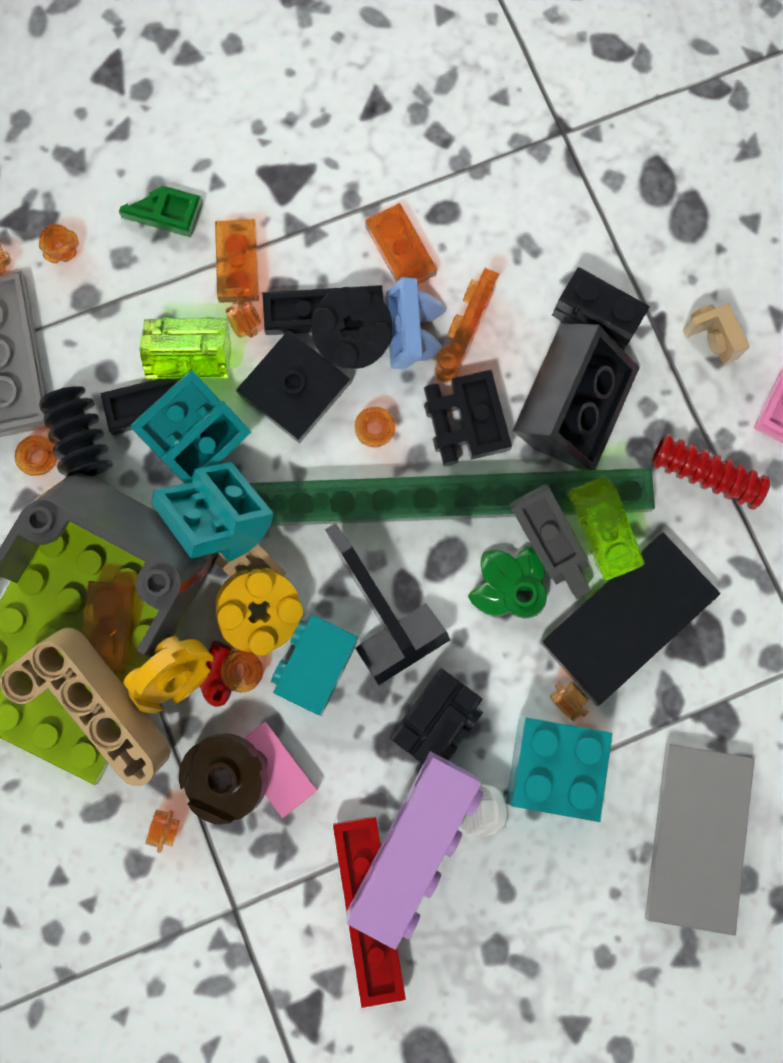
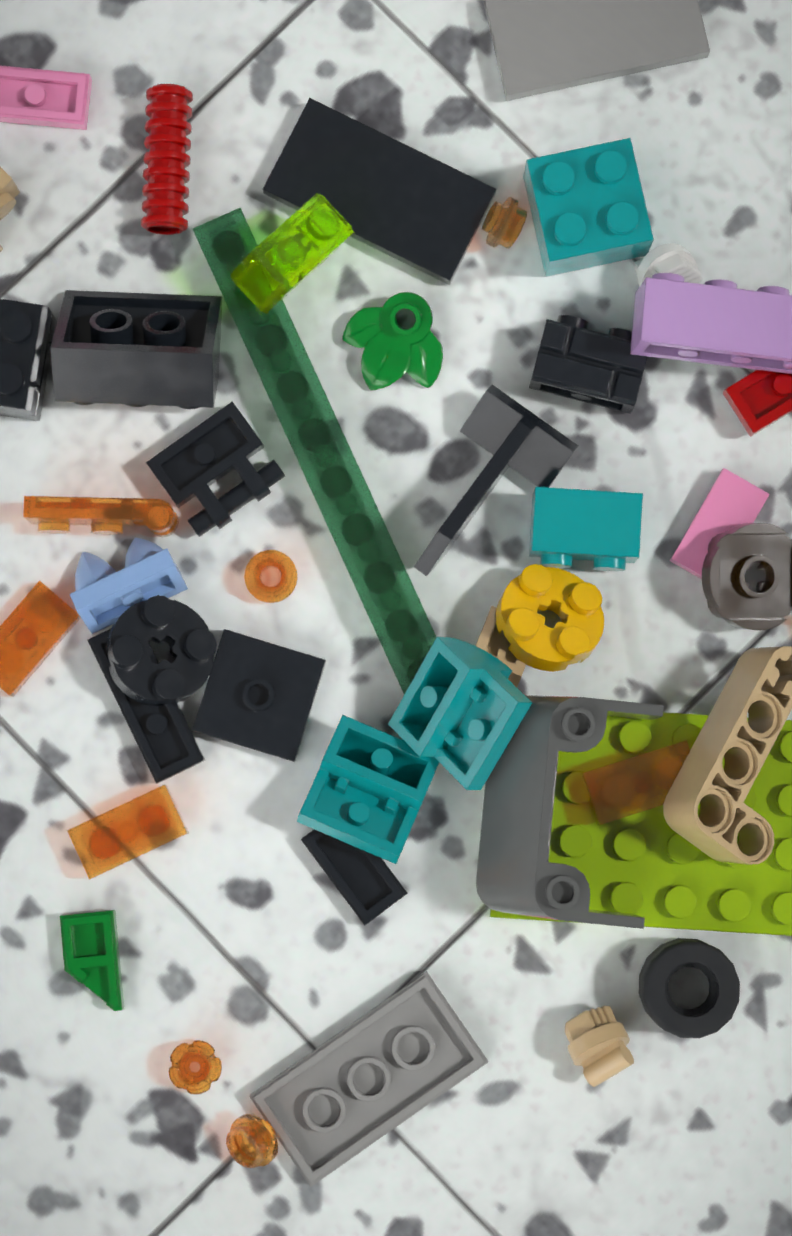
camera: 105 degrees left, 5 degrees up
(25, 451) = (479, 985): clear orange plate -> none
(72, 433) = (430, 926): black piece -> none
(171, 673) = (658, 672): yellow plate -> none
(185, 344) = (267, 841): clear neon green brick -> none
(213, 688) = (645, 642): red arm -> none
(243, 318) = (200, 790): clear orange plate -> none
(252, 671) = (623, 598): clear orange plate -> none
(552, 538) = (326, 311): dark grey hinge -> none

